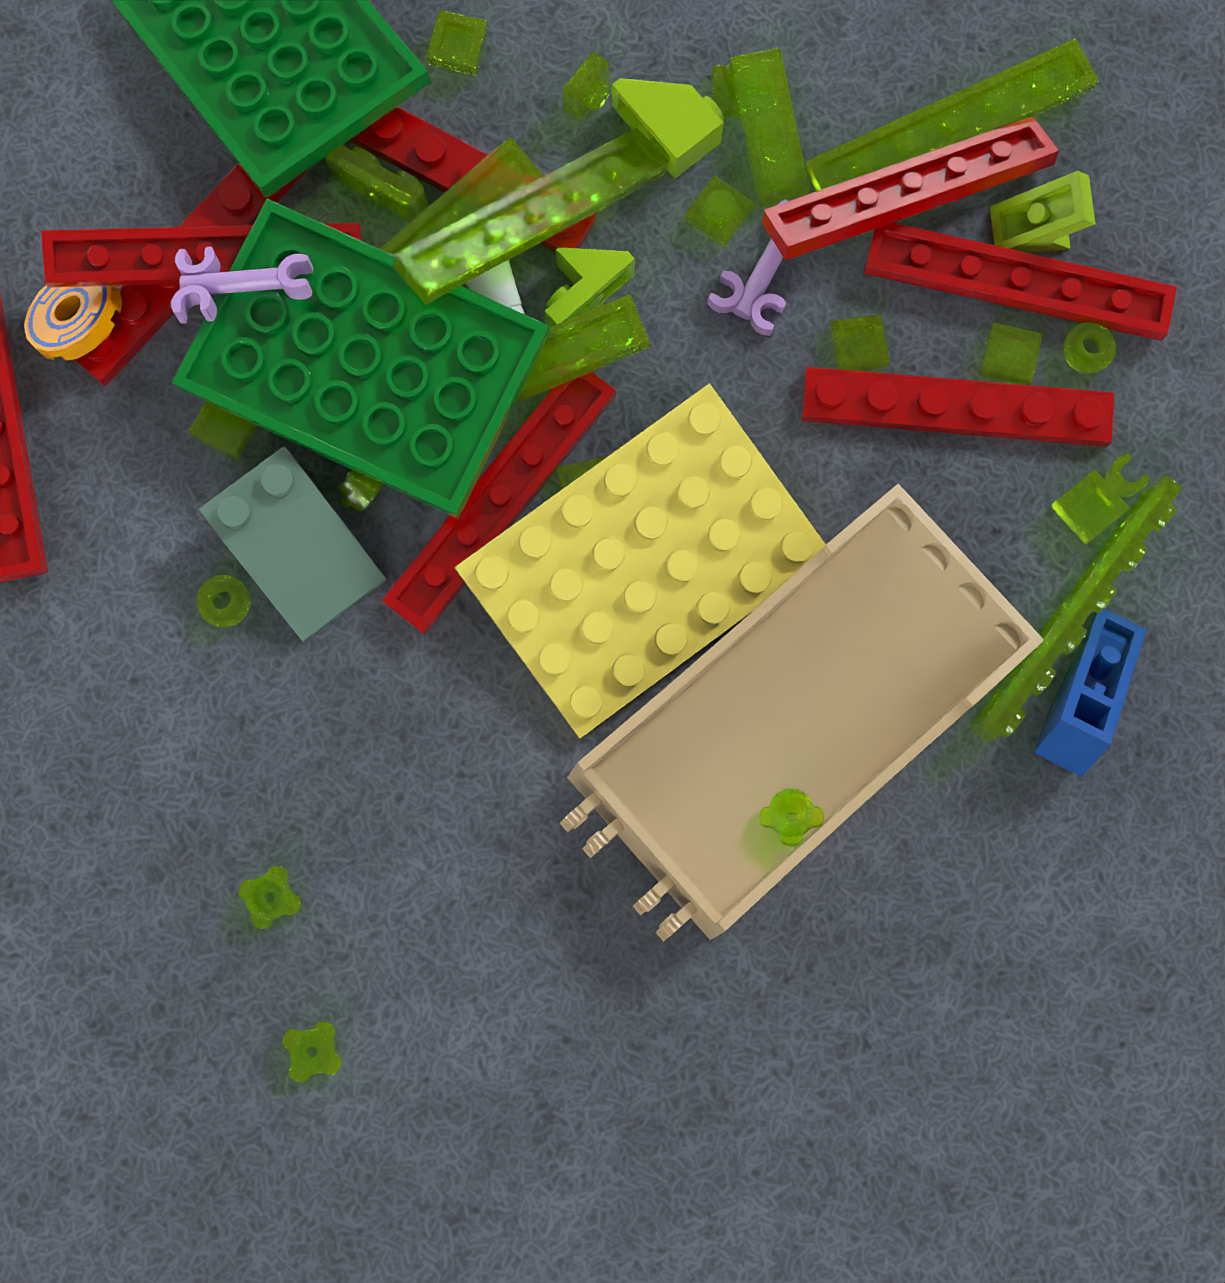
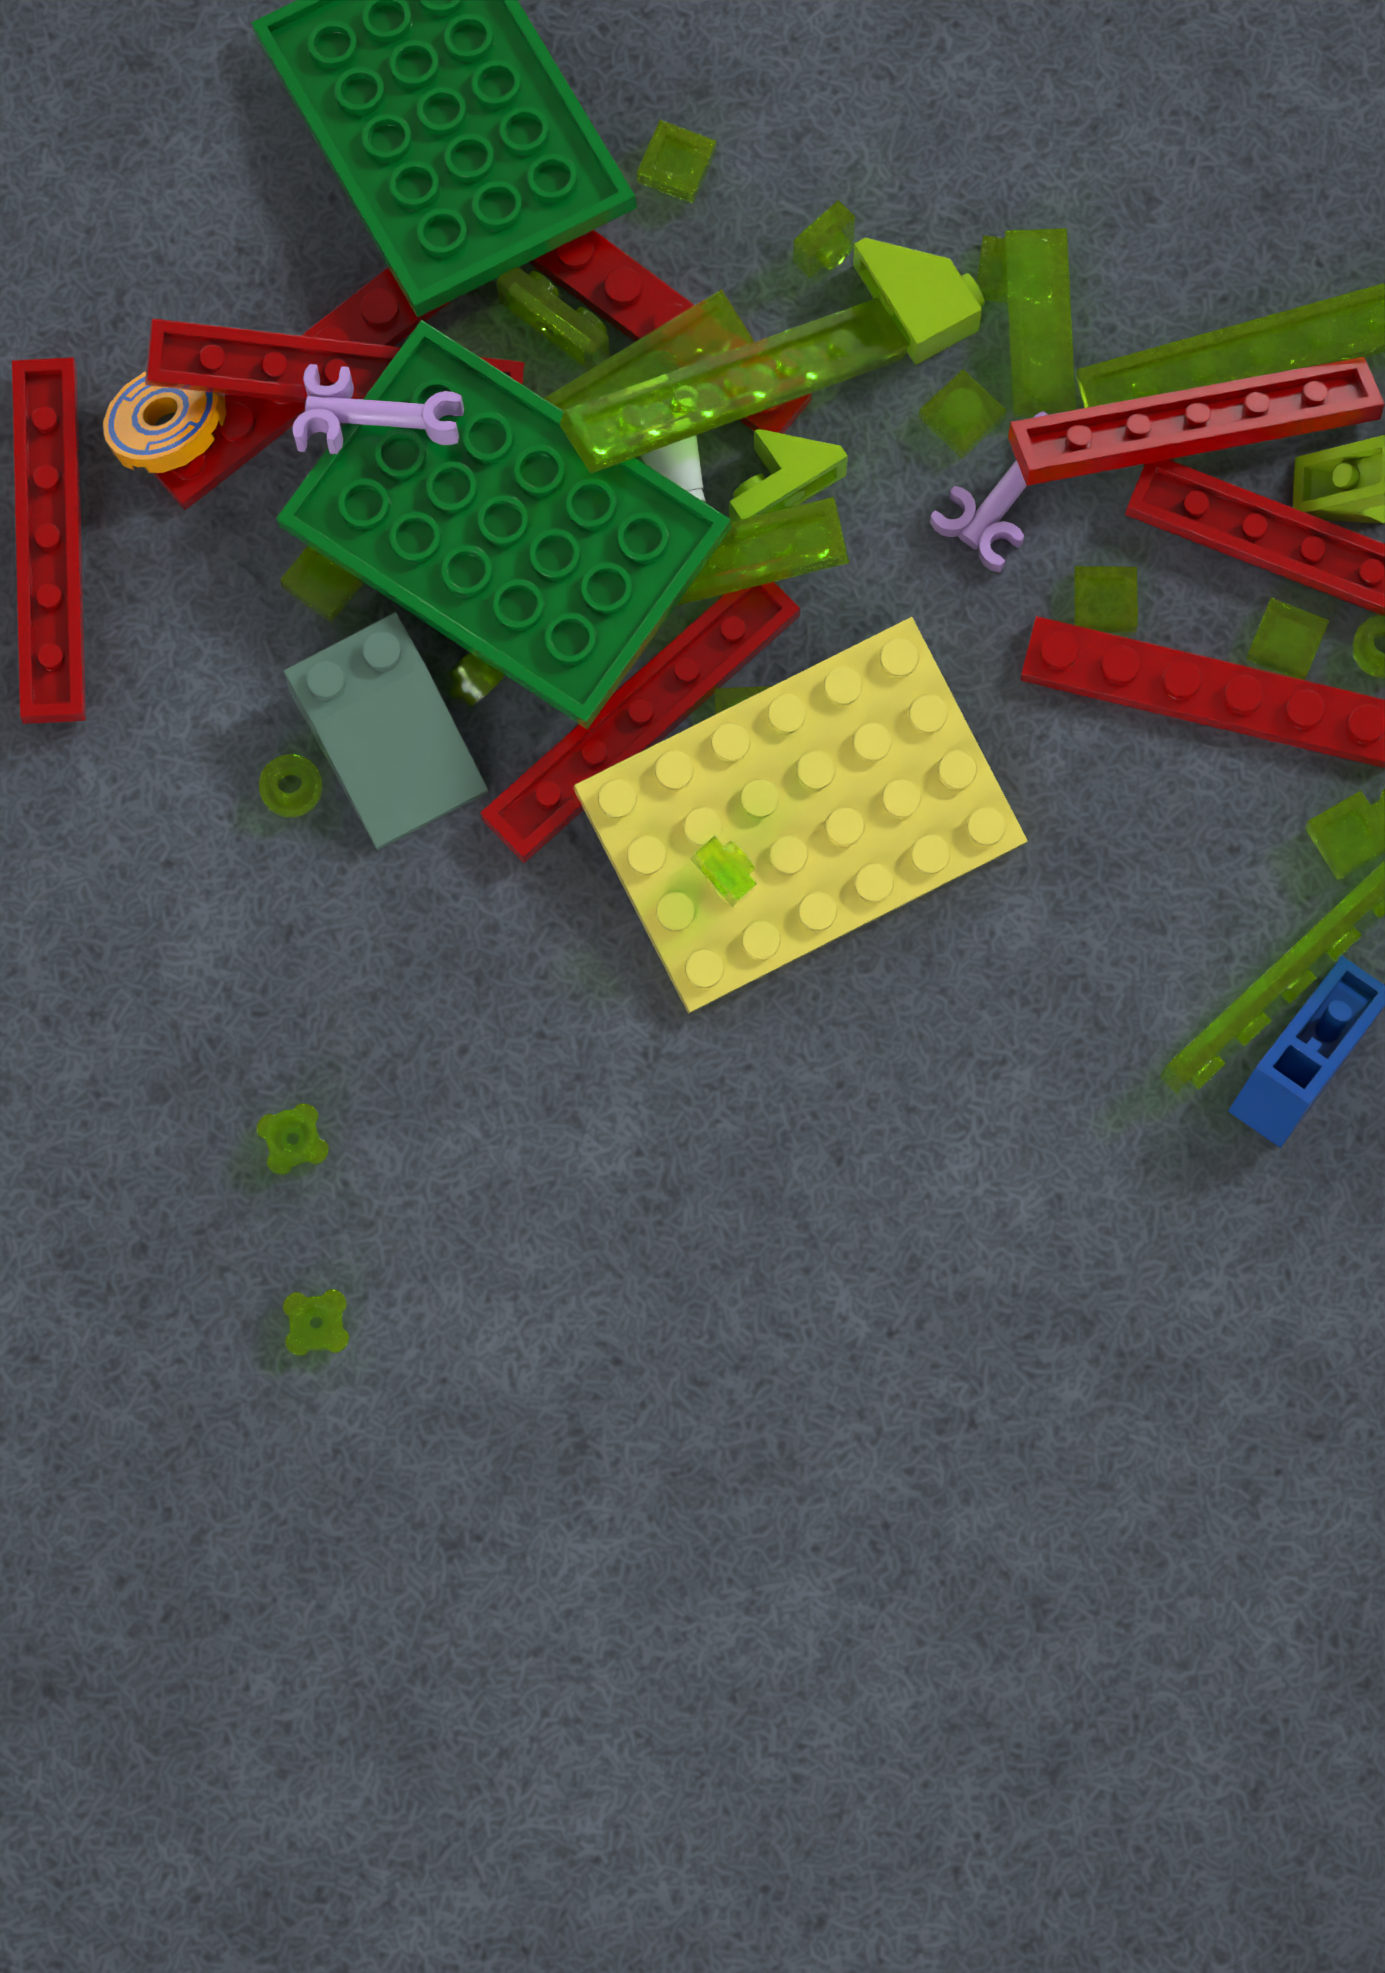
camera: 10 degrees right, 5 degrees down
(592, 619) = (726, 869): none -> clear neon green plate
(791, 802) = (925, 1137): clear neon green plate -> none
(807, 693) = (955, 1020): tan hinge -> none

